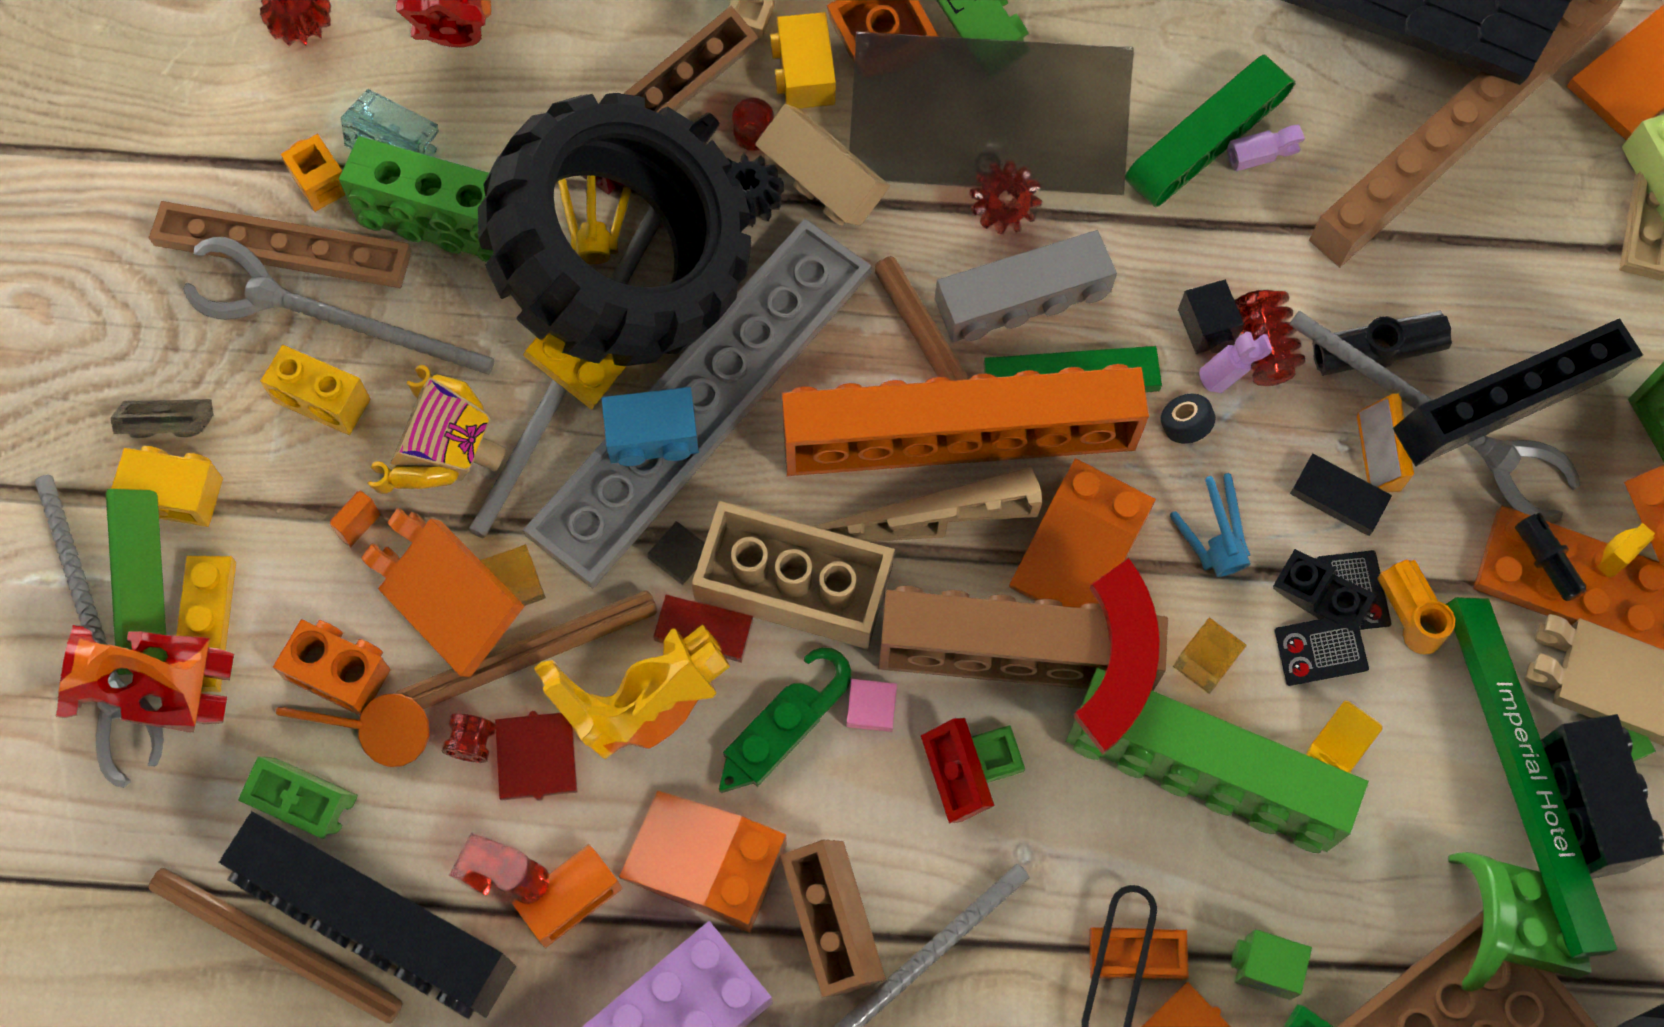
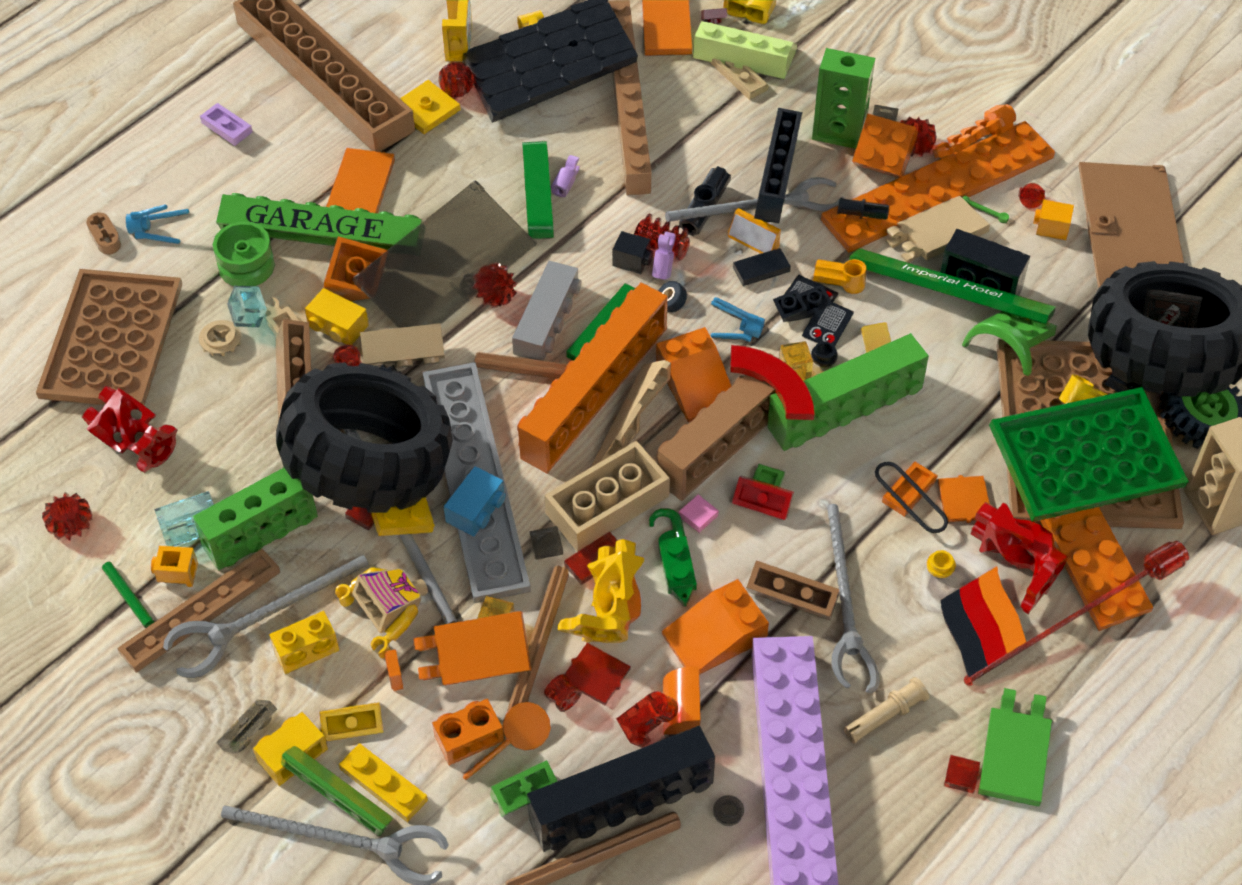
camera: 50 degrees left, 15 degrees down
(174, 681) = (404, 796): red hips -> none
(248, 155) = (127, 594): none -> green bar
(260, 523) = (351, 721): none -> yellow slope
(1263, 682) = (824, 354): none -> black plate
(1271, 964) = (958, 438): bright green brick -> none
(1624, 549) = (883, 181): yellow tile -> none

